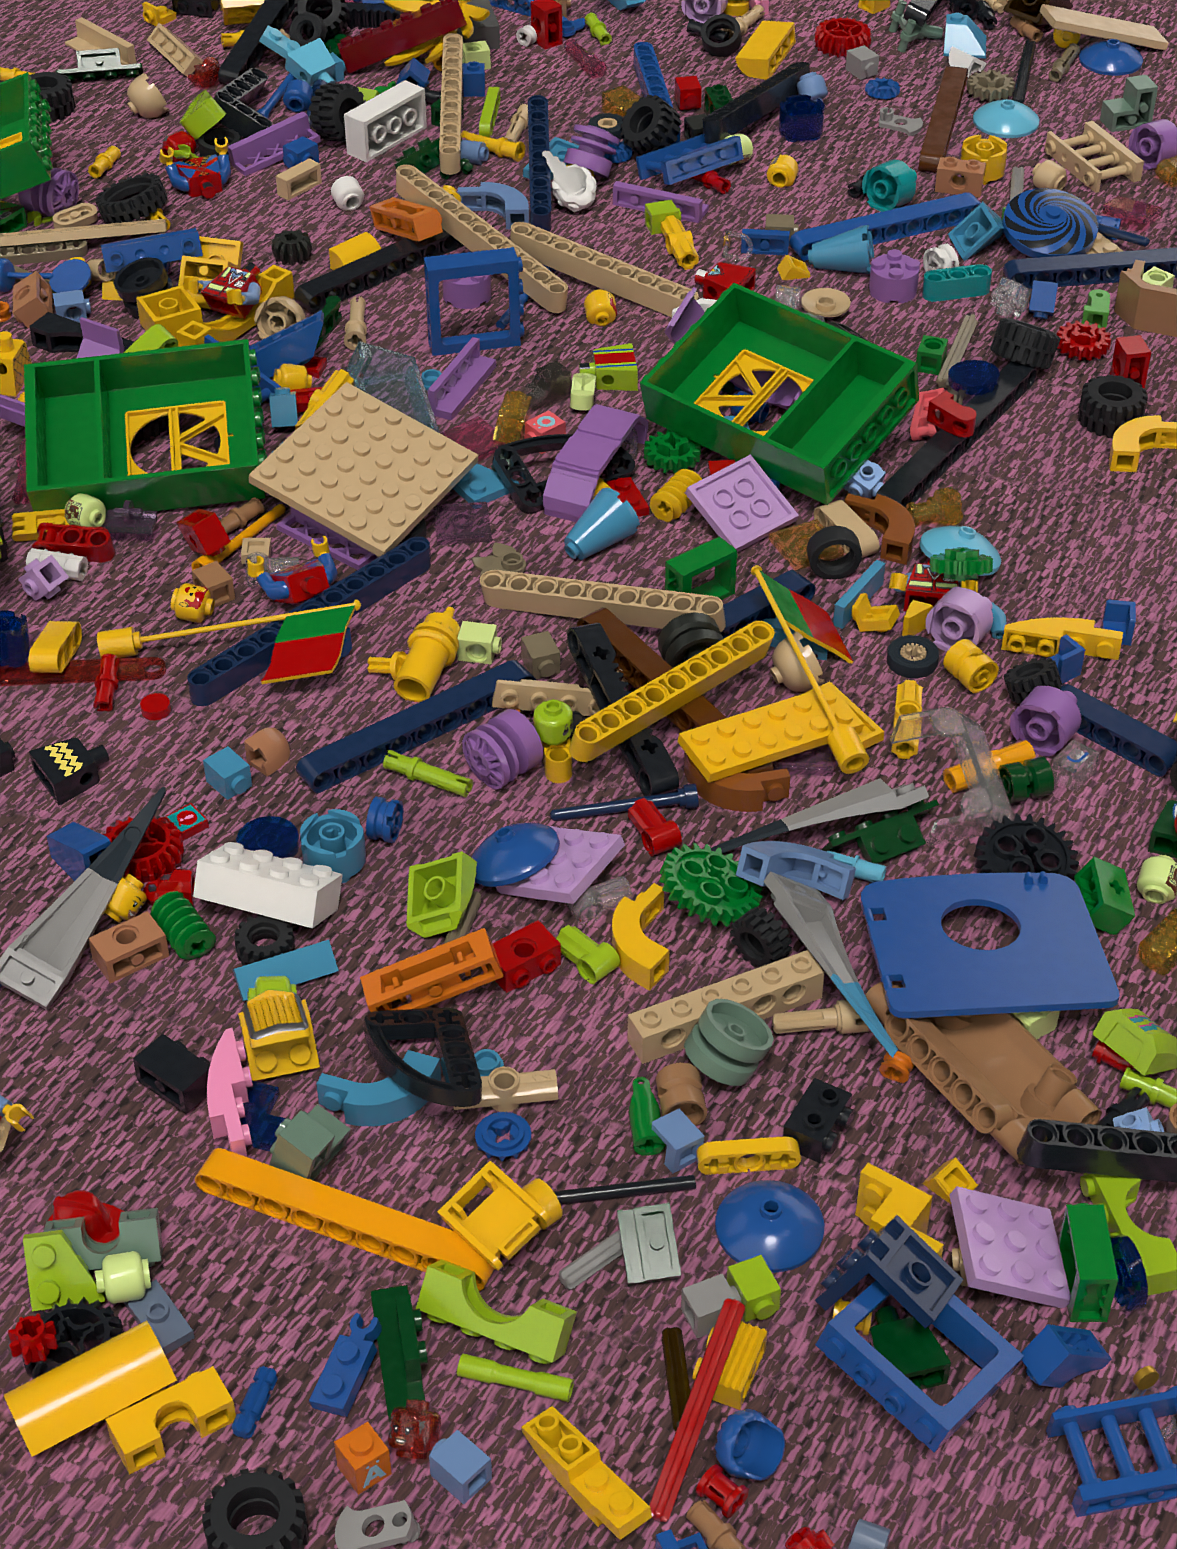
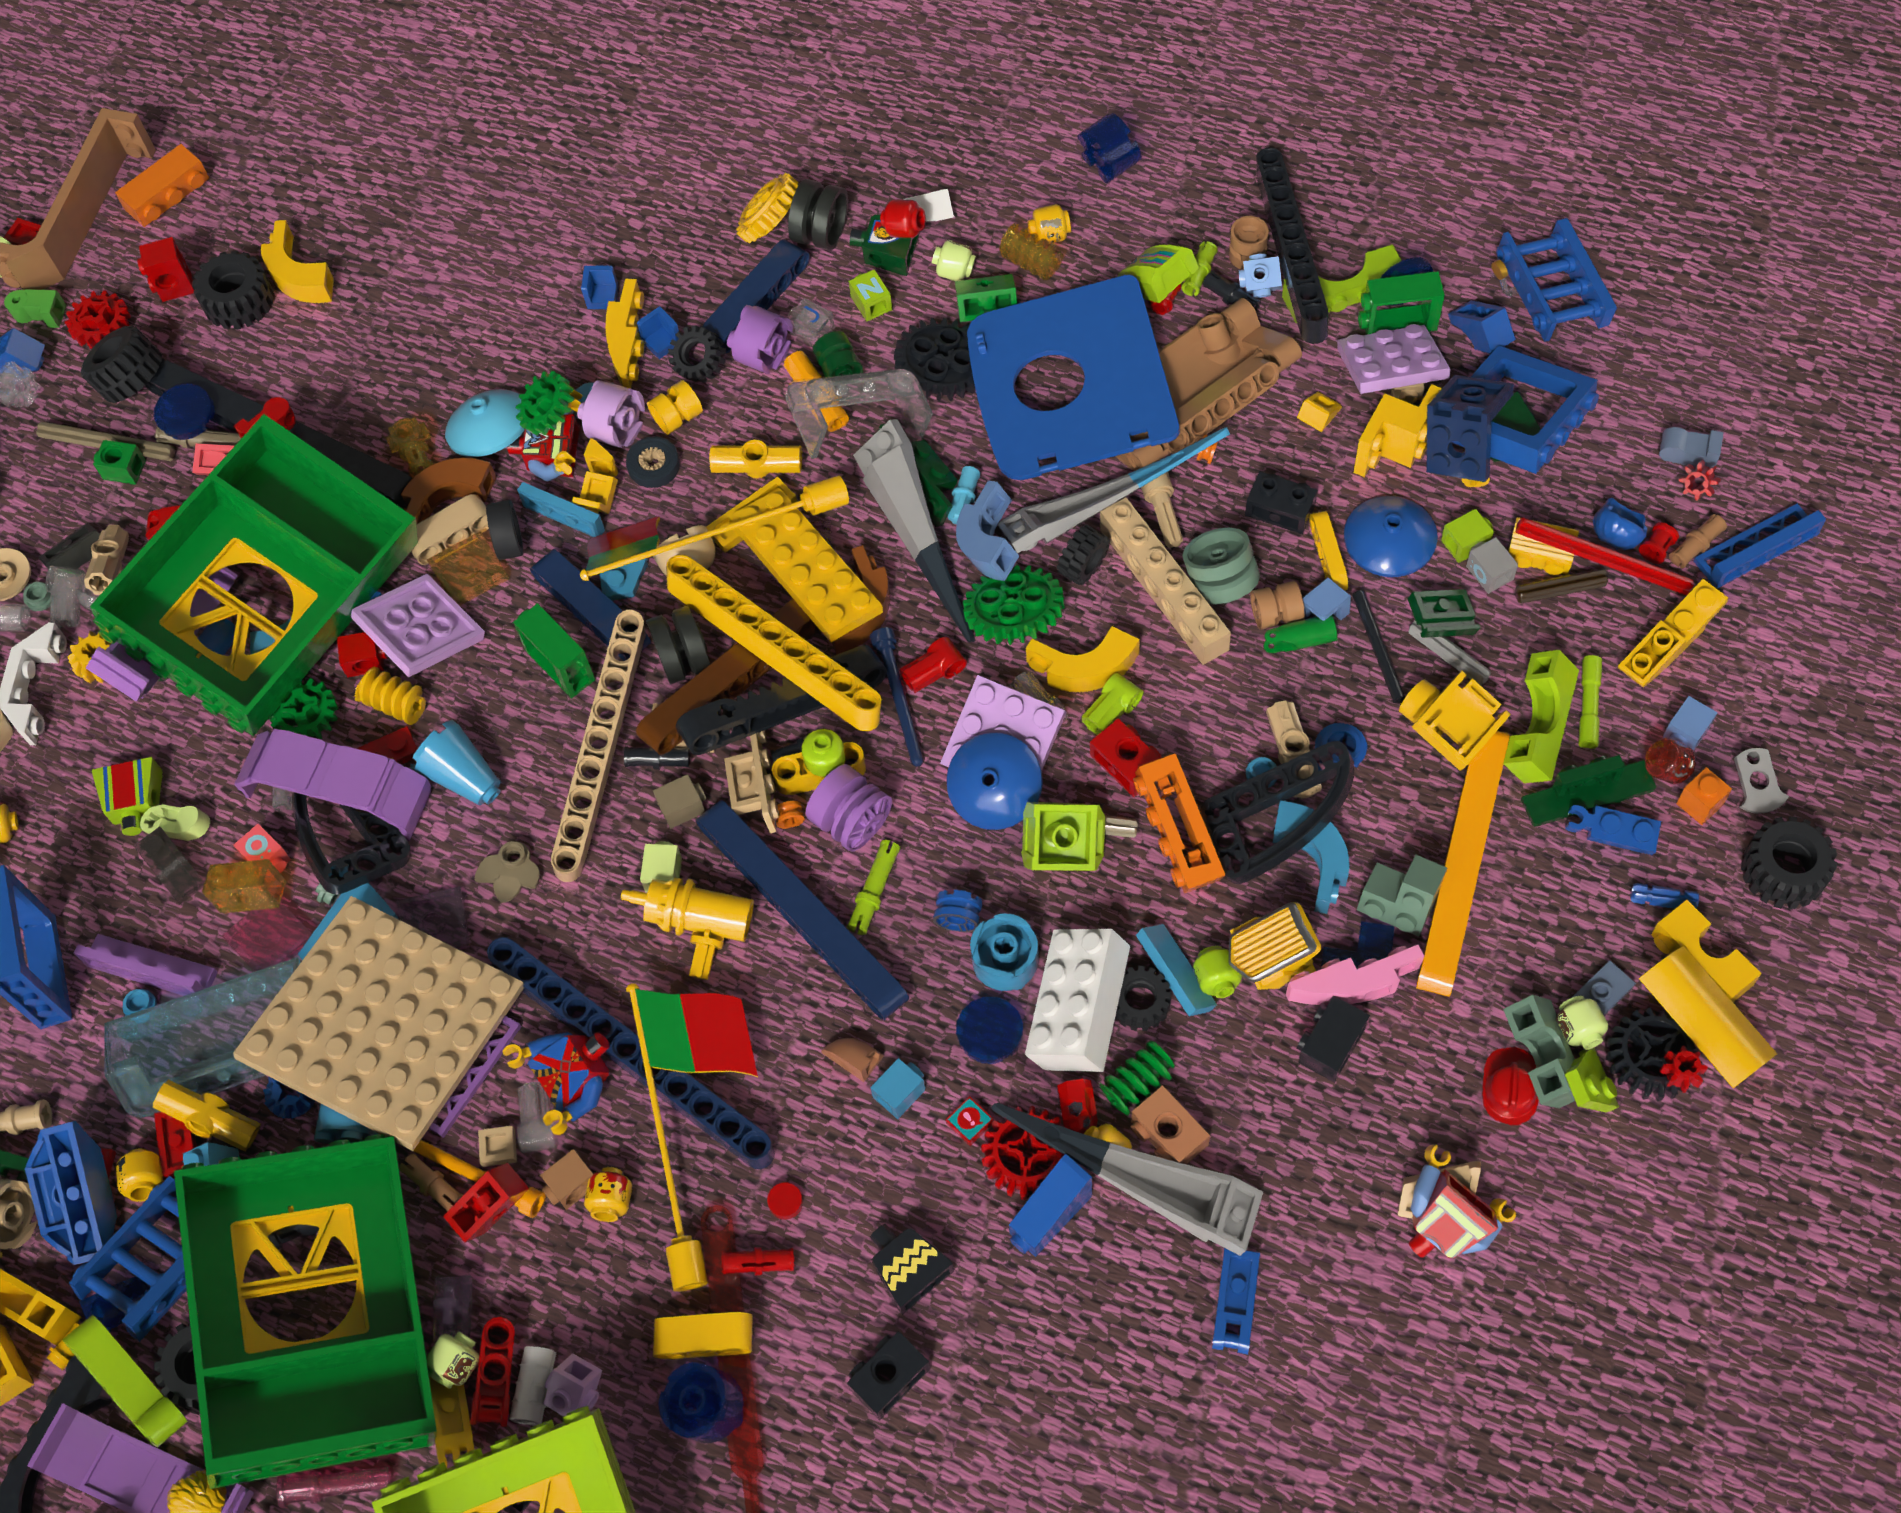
camera: 90 degrees left, 20 degrees up
(1111, 811) = (870, 295): none -> lime brick

